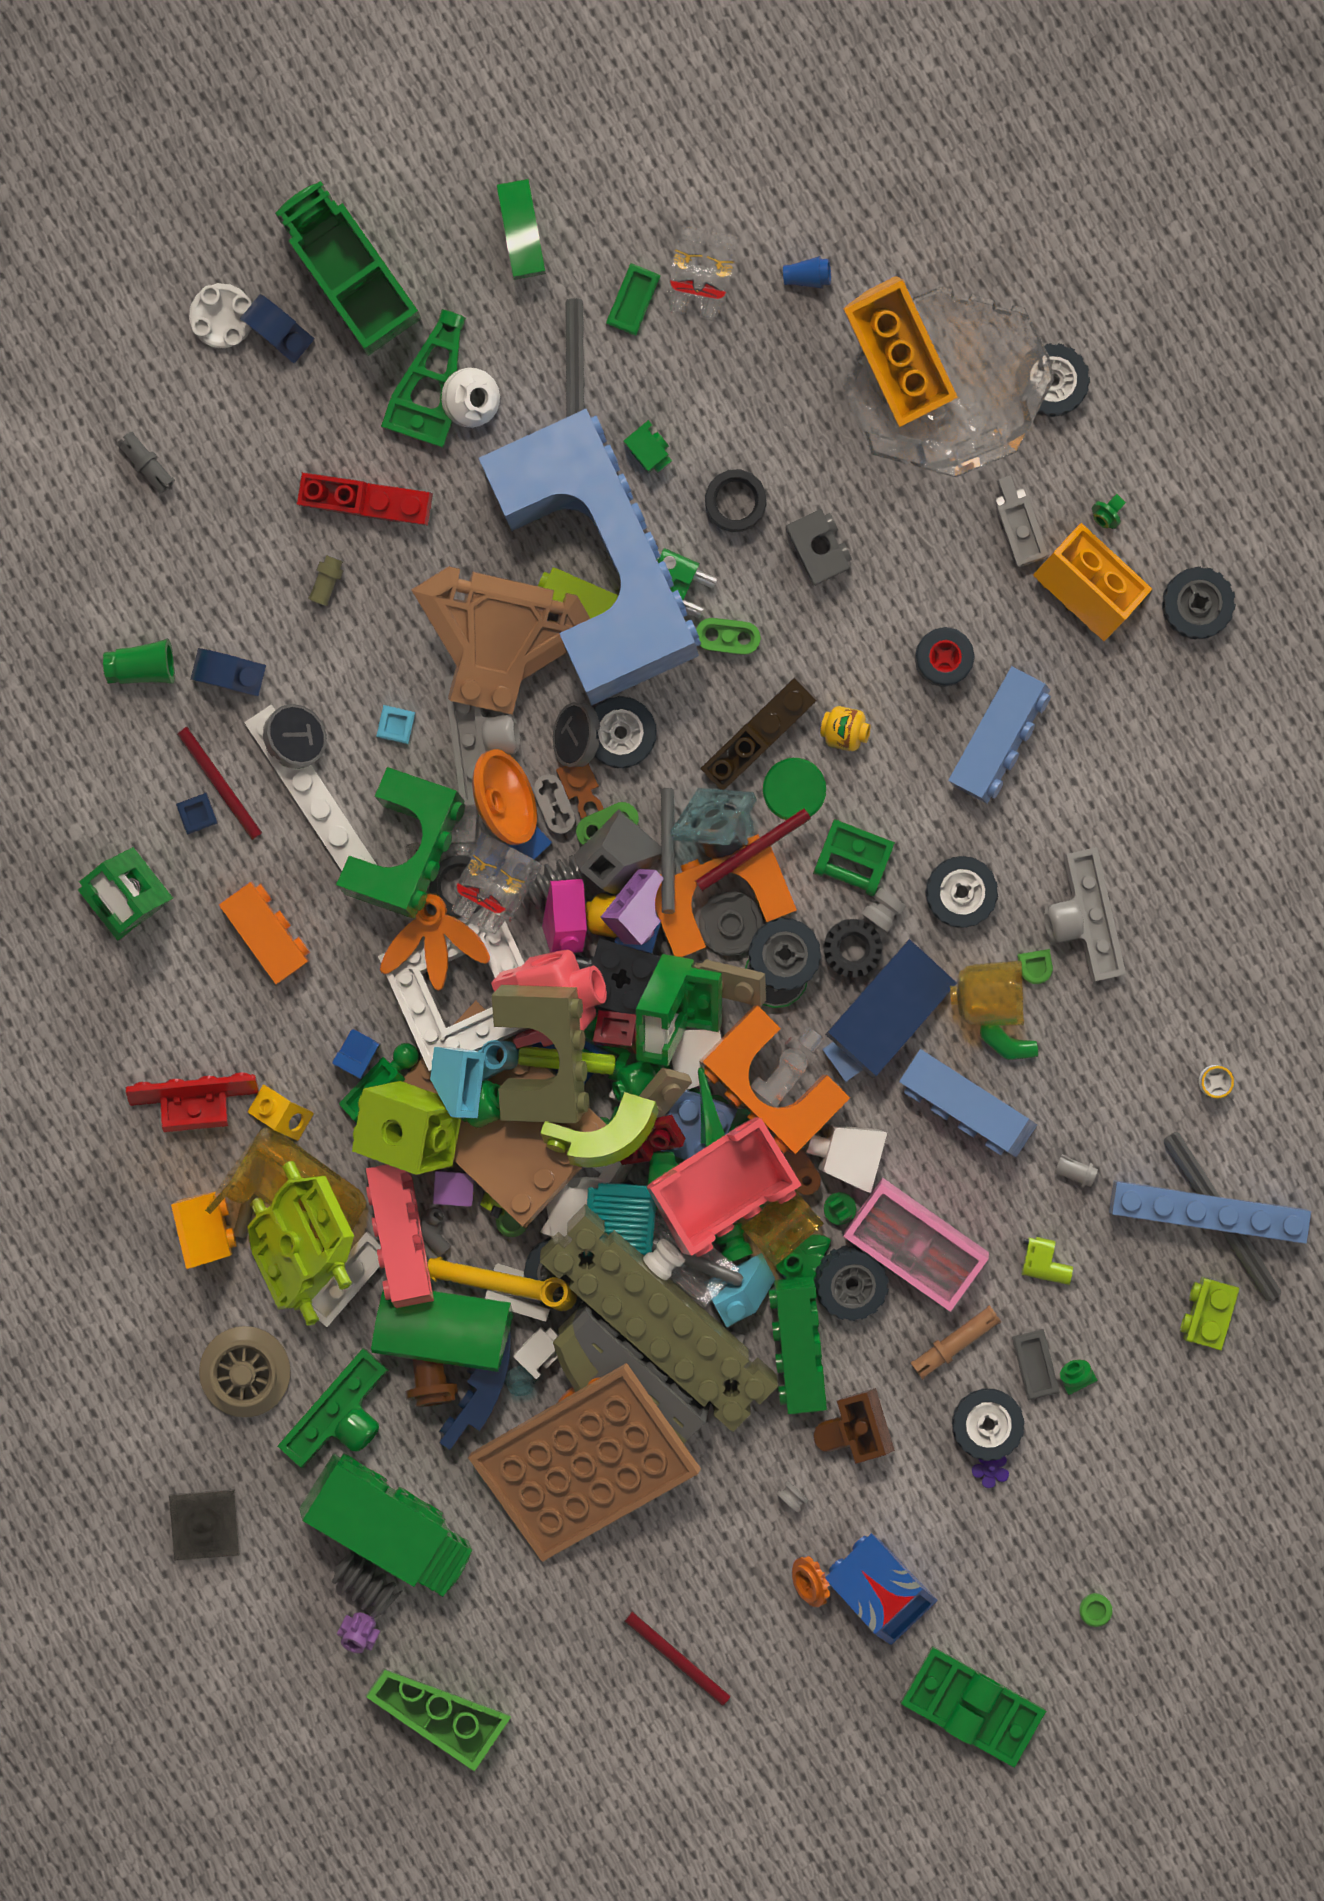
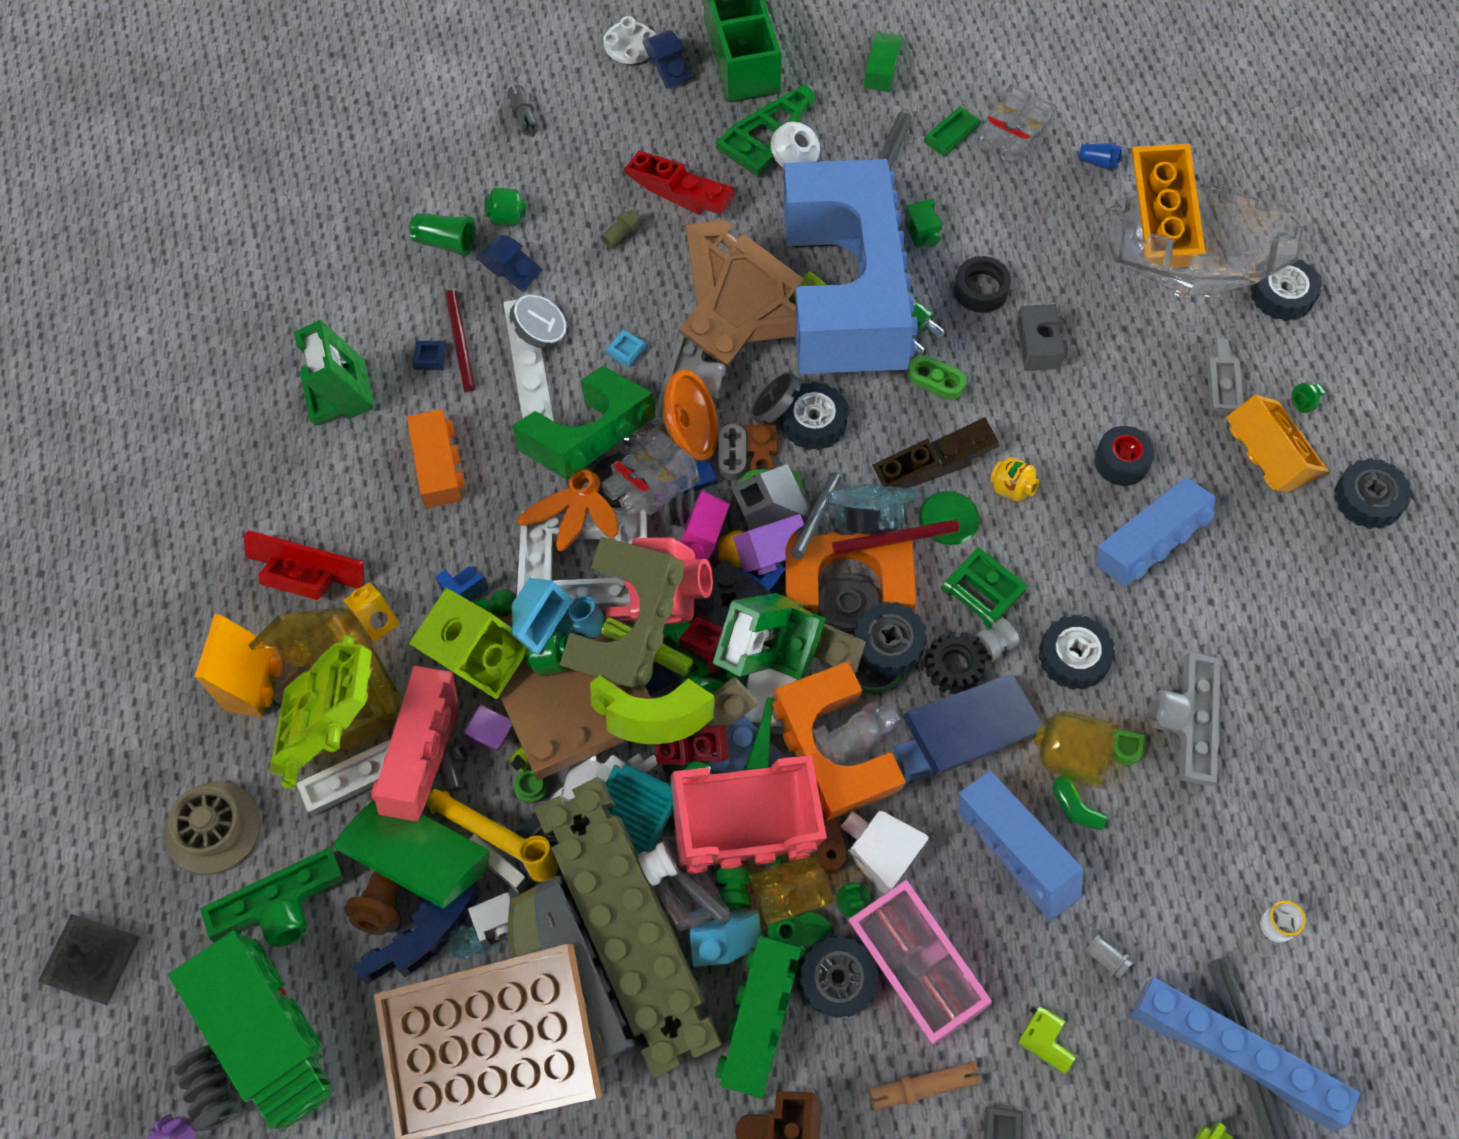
camera: 30 degrees right, 25 degrees down
(190, 604) = (504, 206): none -> green head

